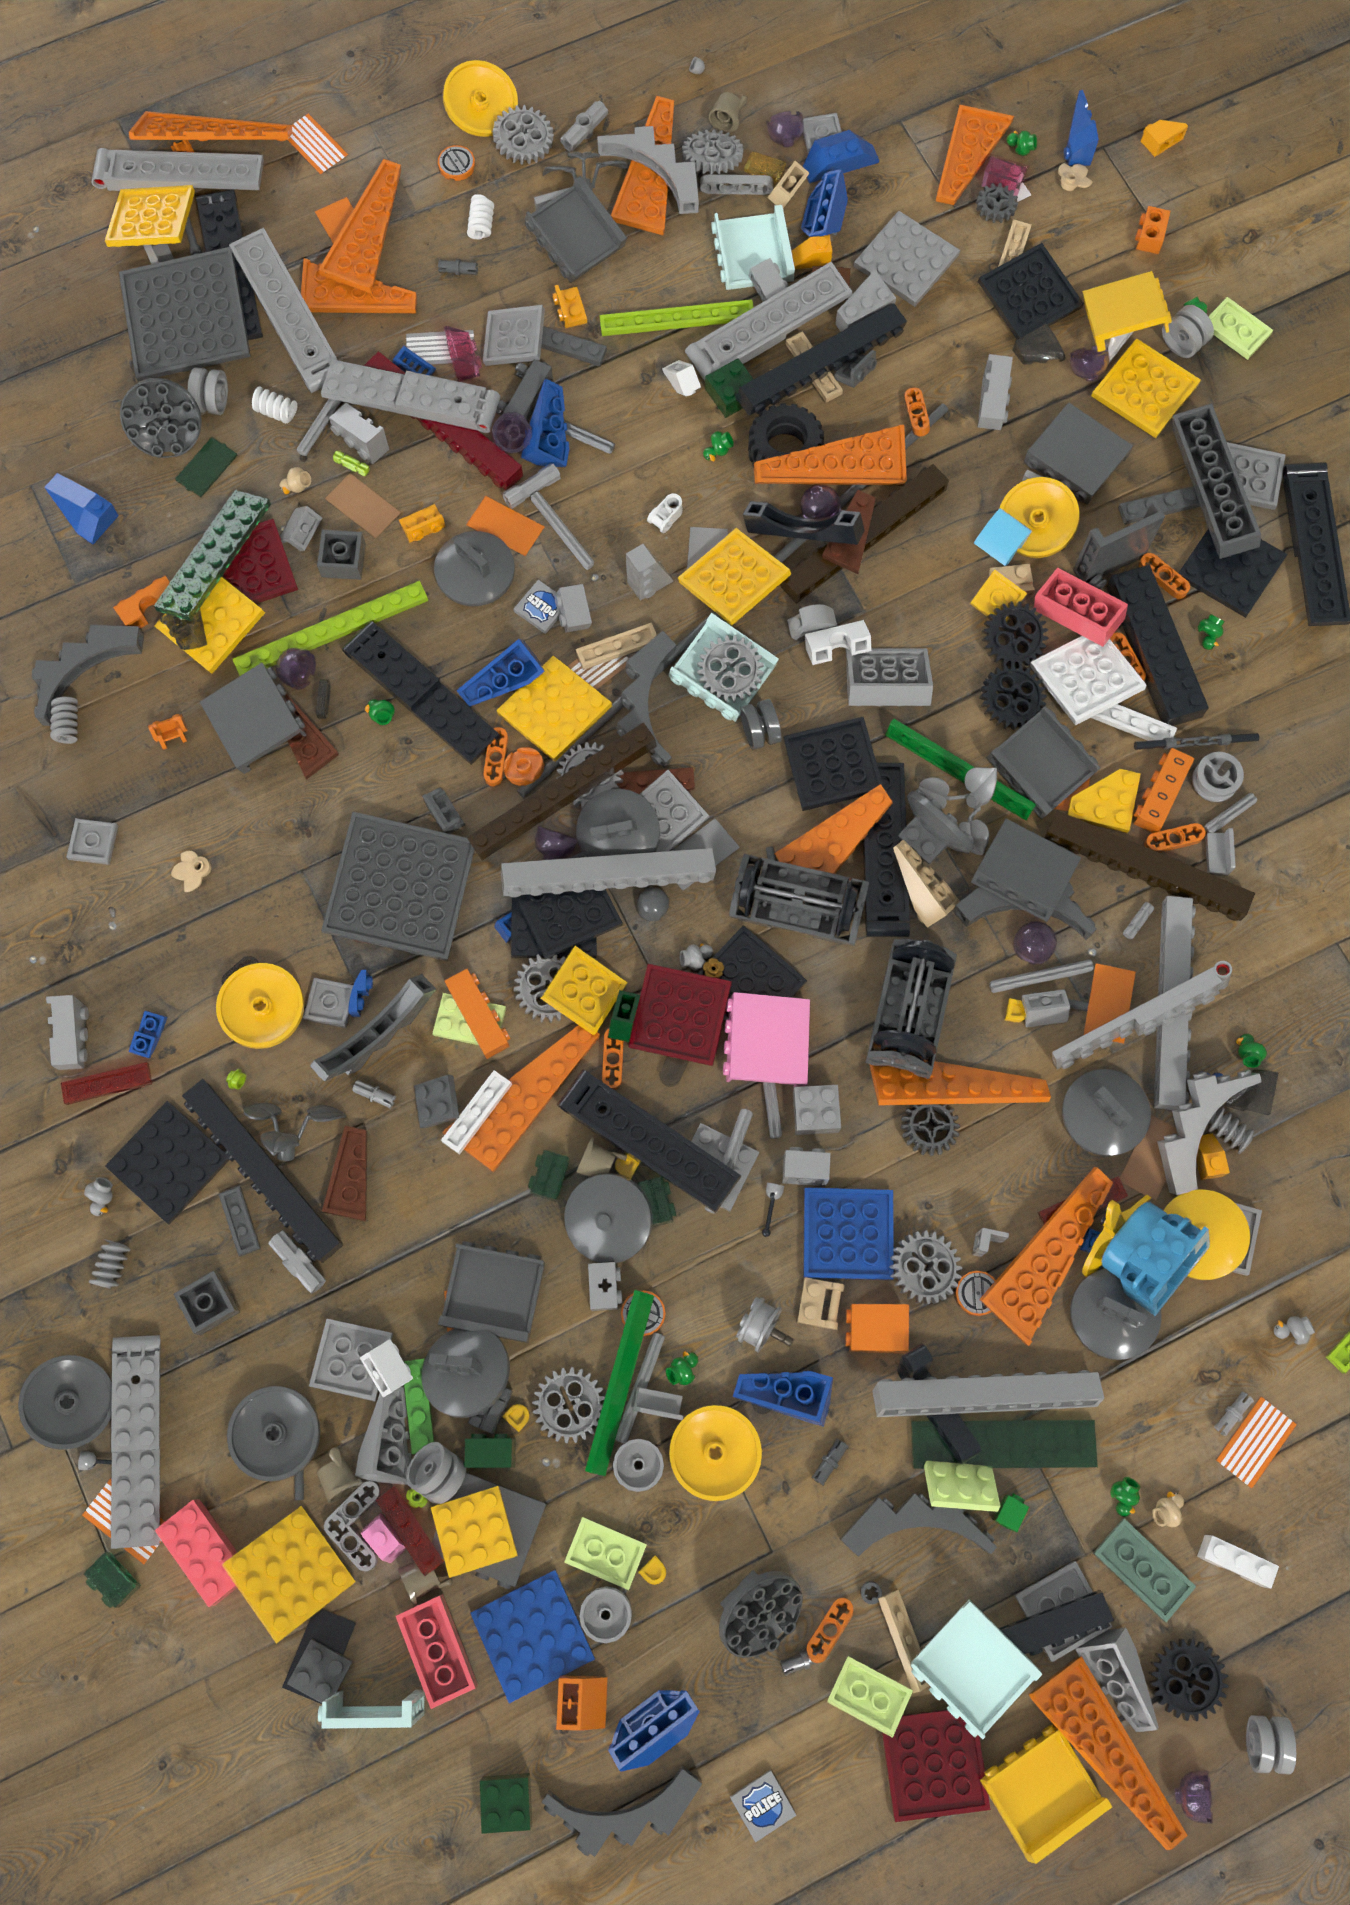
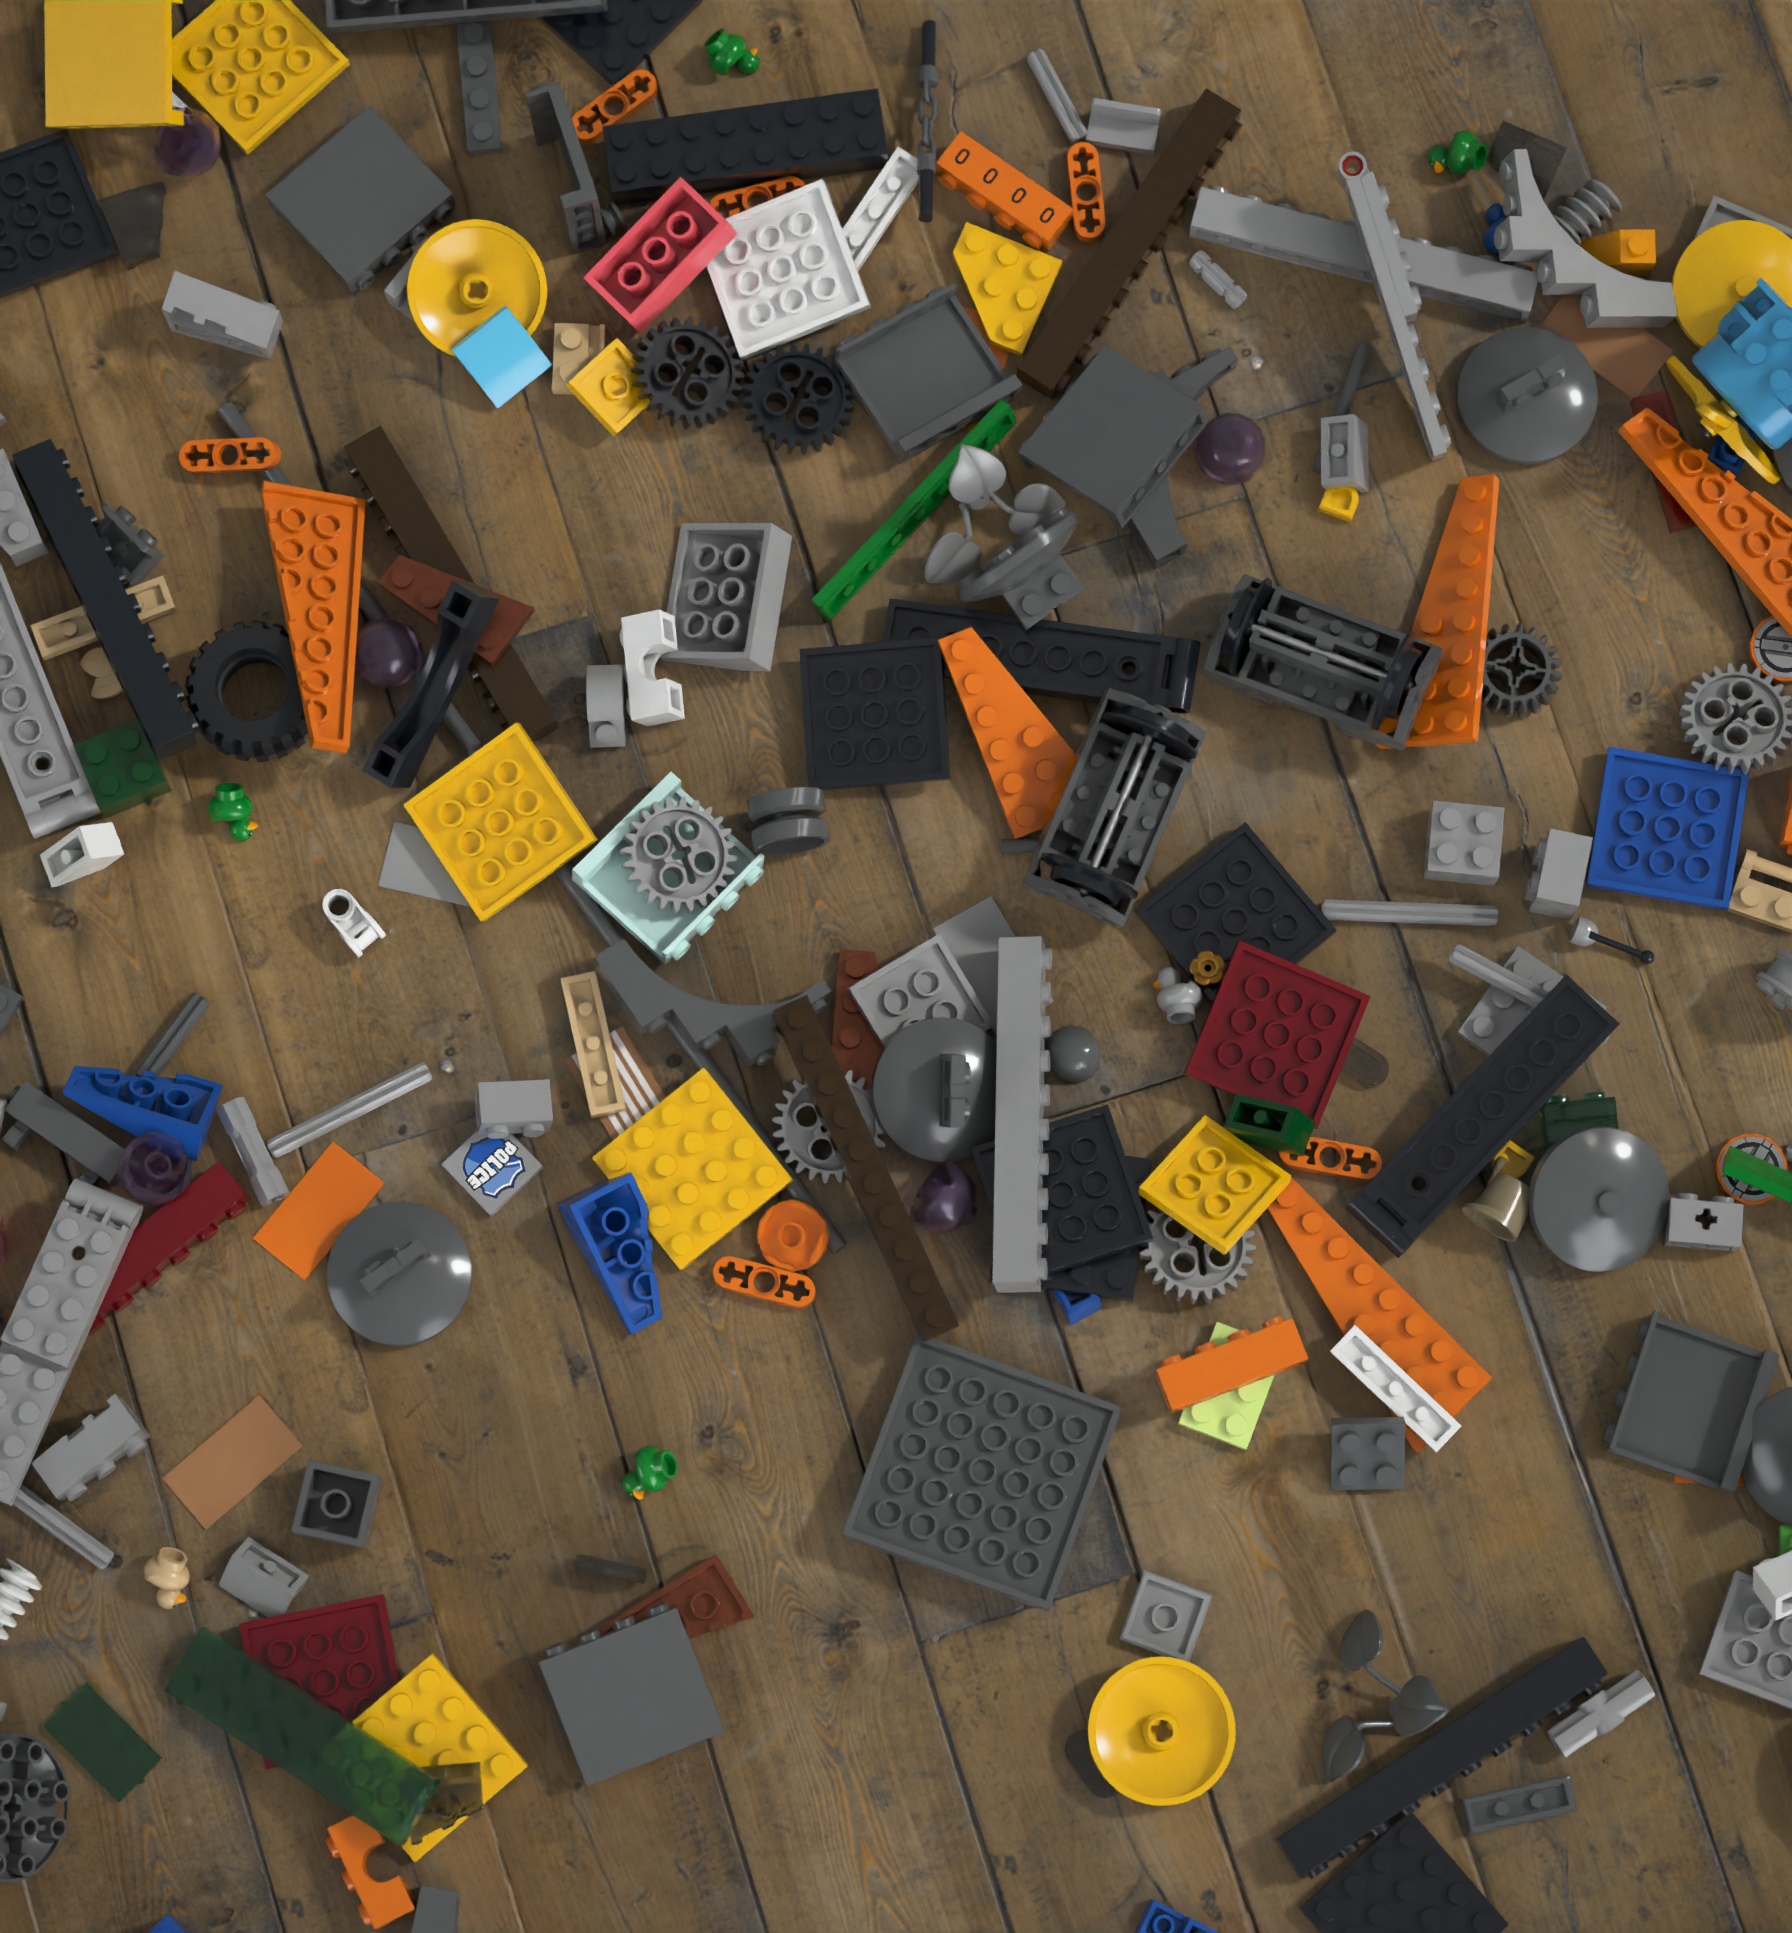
camera: 80 degrees left, 5 degrees up
(168, 729) = (624, 1849): orange piece -> none
(188, 870) = (893, 1839): tan plate -> none
(206, 1303) = (1652, 1865): dark grey brick -> none
(236, 1079) = (1279, 1788): lime plate -> none
(295, 667) = (543, 1613): cylinder -> none
(335, 627) = (473, 1545): lime plate -> none
(348, 1181) = (1476, 1615): copper wing -> none
(351, 463) = (145, 1472): lime axle -> none
(360, 988) = (1149, 1557): blue slope -> none
(374, 1094) = (1336, 1557): light grey axle -> none
(378, 1032) = (1238, 1535): dark grey arch -> none
(420, 692) = (622, 1398): black hinge -> none
(422, 523) = (291, 1357): light orange bracket -> none
(443, 811) = (854, 1384): dark grey hinge -> none
(549, 1175) = (1513, 1286): clear green brick -> none
(645, 572) = (474, 970): light grey wedge -> none
(767, 1039) = (1340, 901): bright pink panel -> none
(929, 896) = (1130, 598): tan wedge -> none
(983, 1238) = (1710, 622): light grey panel -> none
(1041, 976) = (1288, 450): light grey axle -> none
(1109, 996) = (1346, 353): orange sticker -> none
(1217, 776) = (995, 101): light grey wheel -> none

